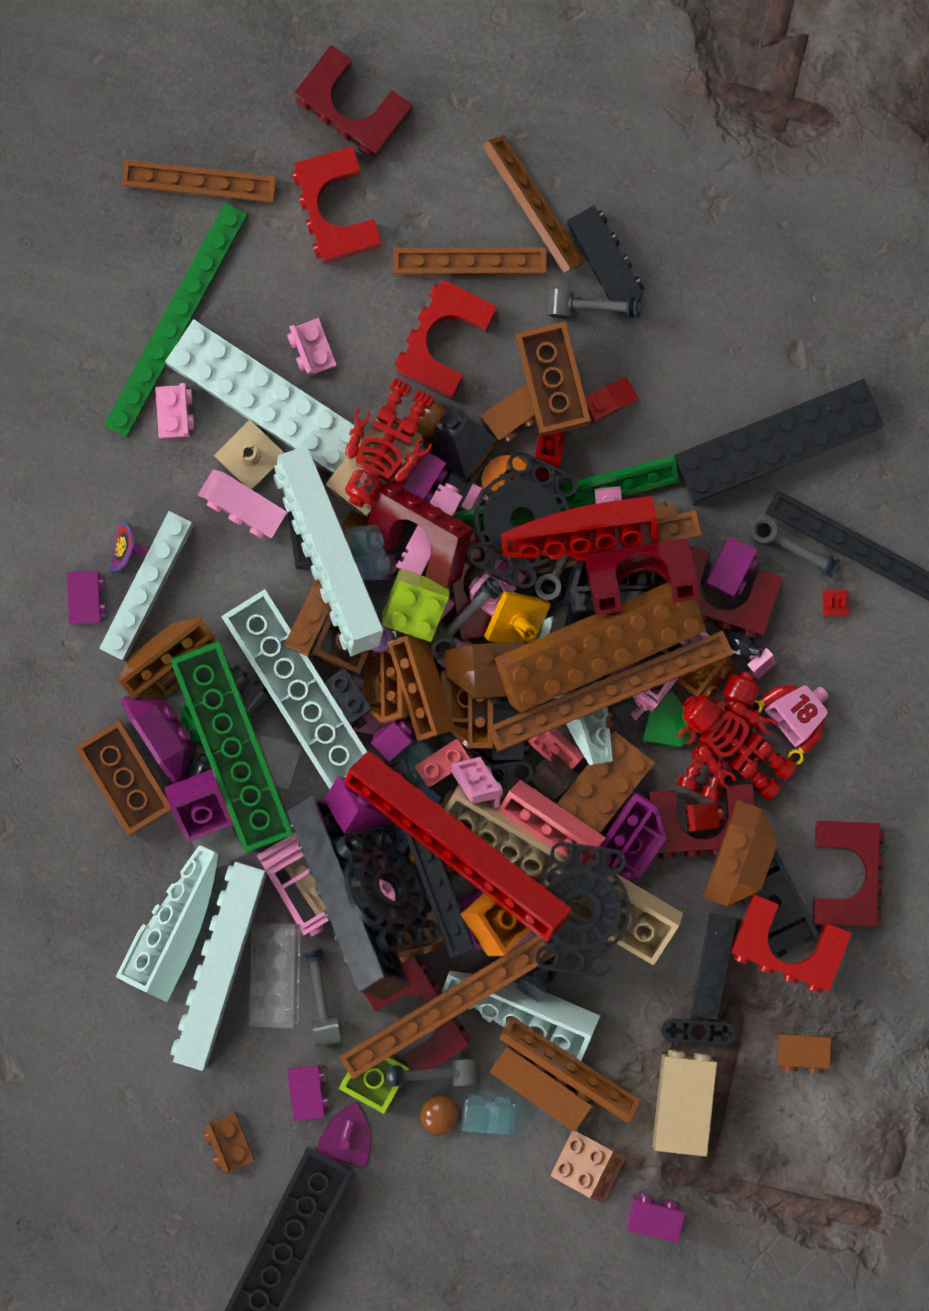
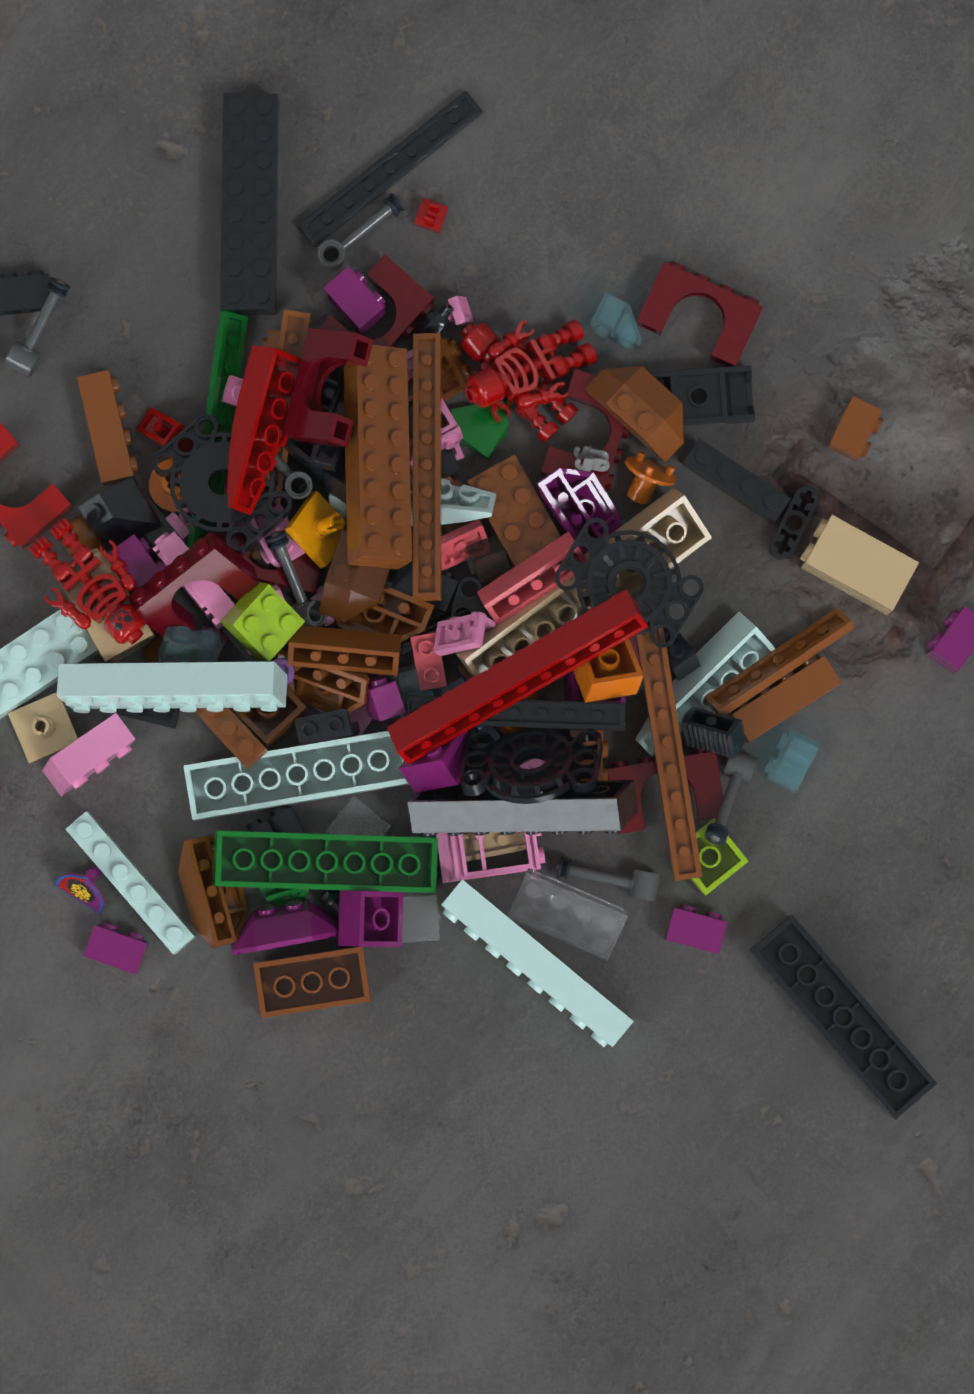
camera: 75 degrees left, 0 degrees up
(168, 939) = (489, 1005): light aqua wedge -> none
(228, 1142) = (714, 1026): dark orange bracket -> none
(347, 1136) = (755, 908): magenta shield -> none
(439, 1115) = (771, 809): dark orange hair -> none
(483, 1037) = (713, 732): none -> black brick
(552, 379) = (95, 395): dark orange brick -> none
(588, 1166) = (880, 685): nougat bracket -> none
(610, 399) = (139, 351): red slope -> none
(678, 833) = (593, 459): none -> light grey piece
(686, 887) = (647, 477): none -> orange piece
(703, 816) = (586, 429): red slope -> none
(797, 714) = (525, 296): torso -> none
(811, 802) = (617, 320): none -> clear light blue slope
(816, 970) = (781, 380): red arch -> none

